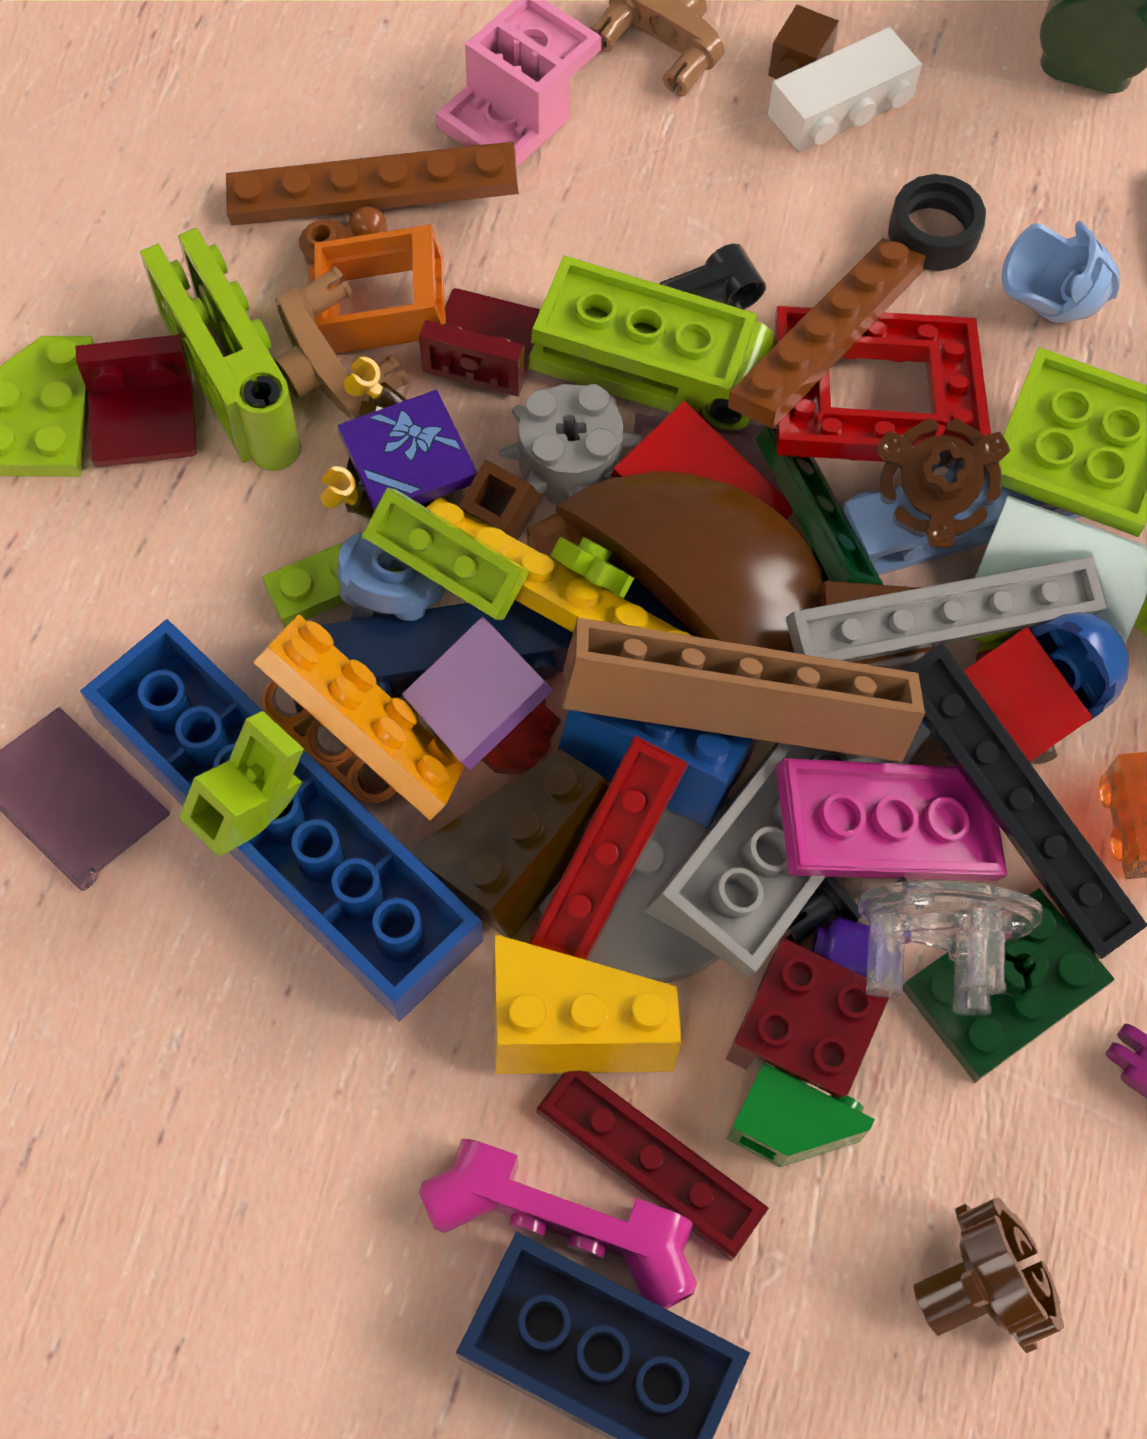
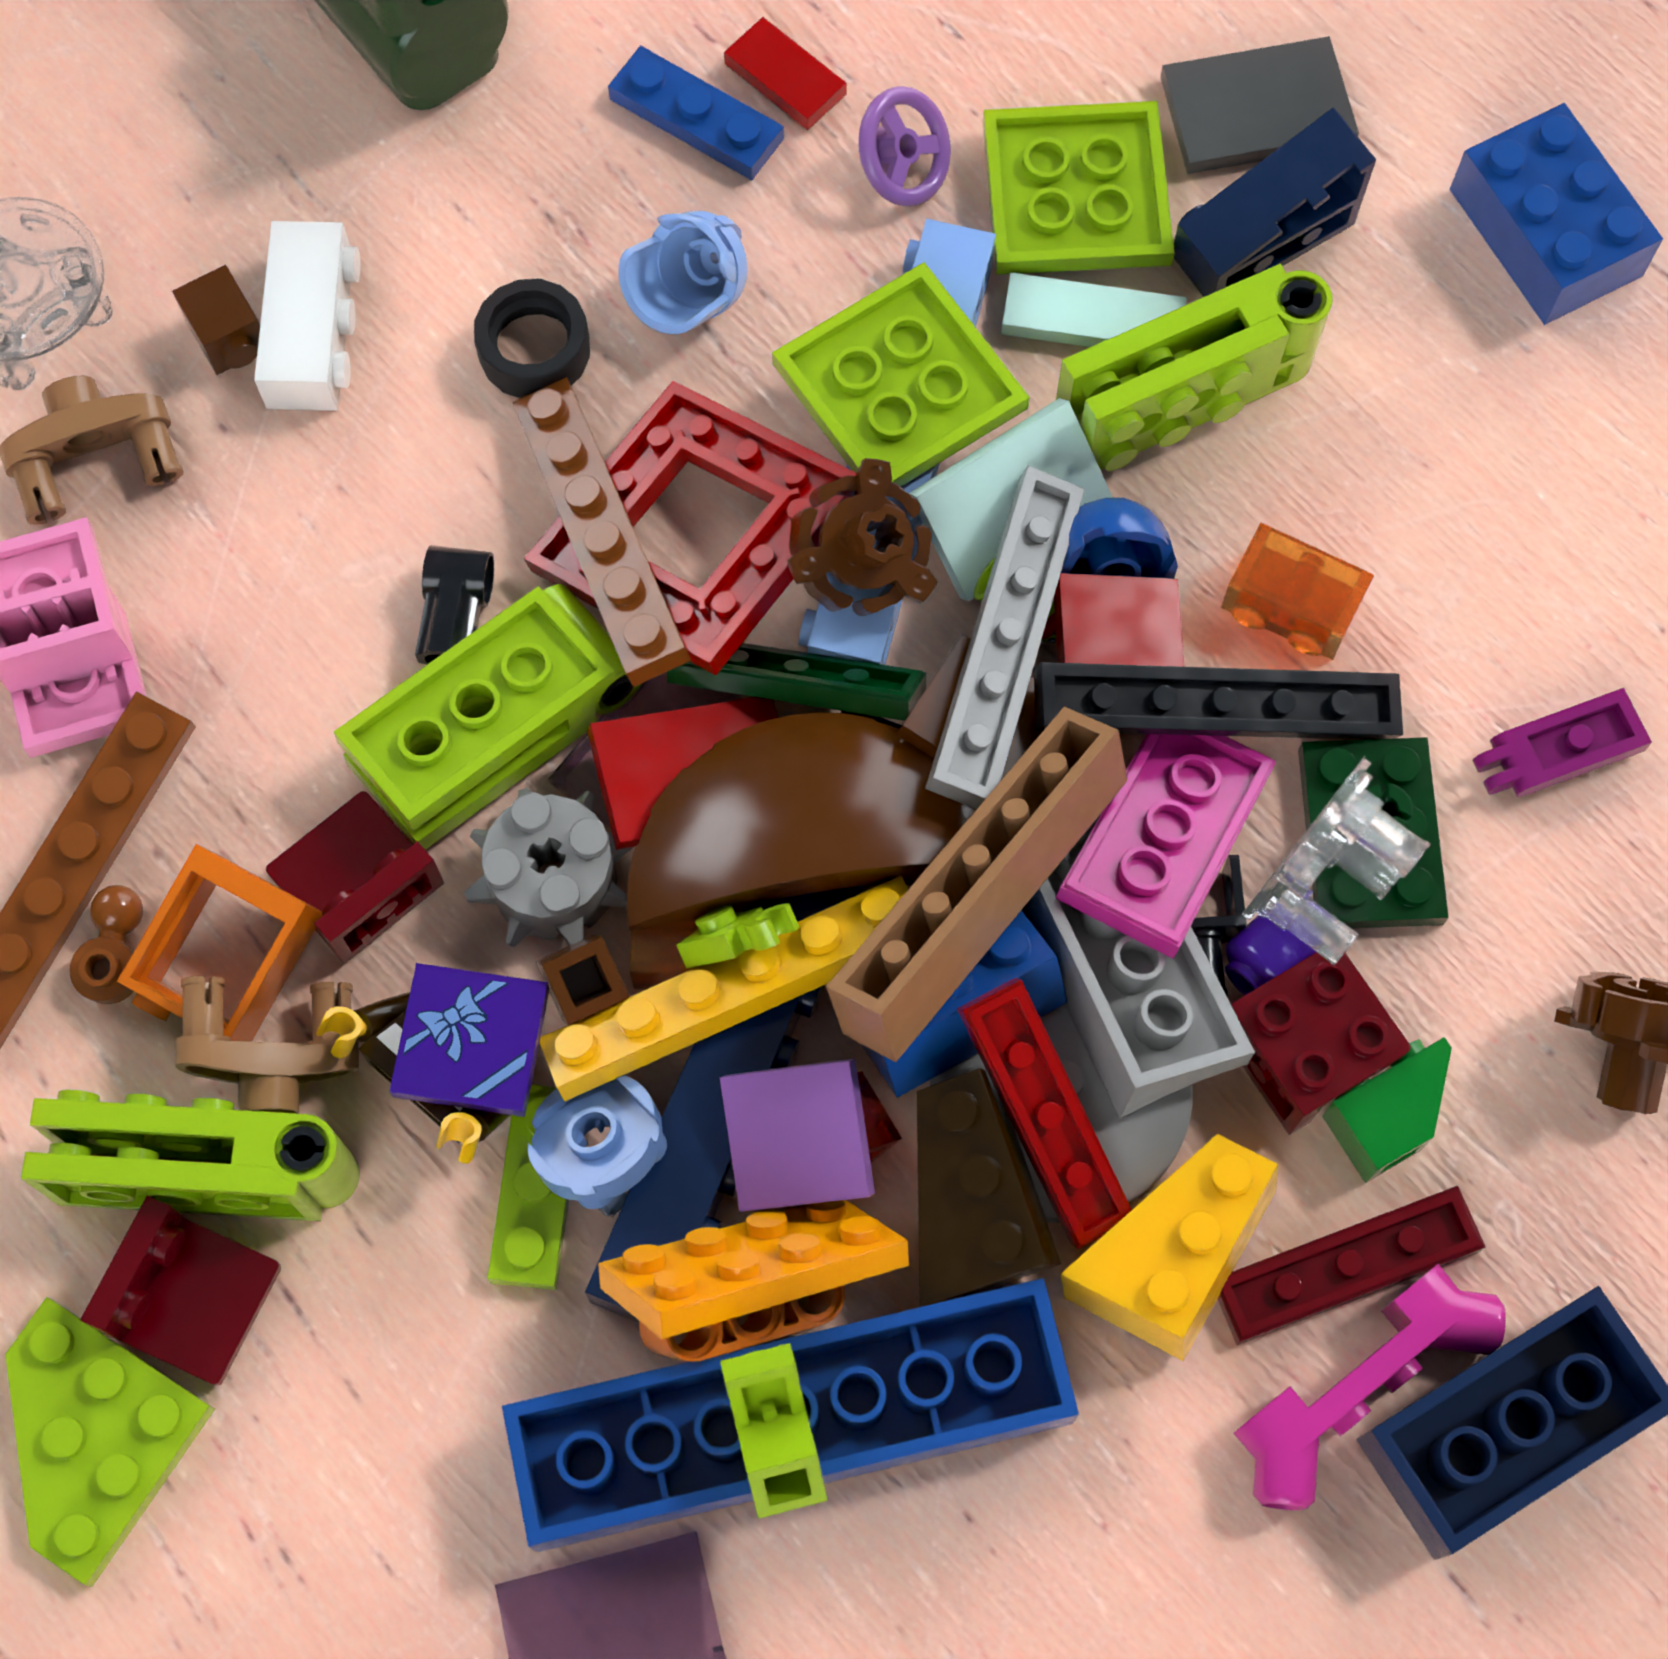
camera: 55 degrees left, 5 degrees up
(445, 554) = (629, 1072): lime plate -> none

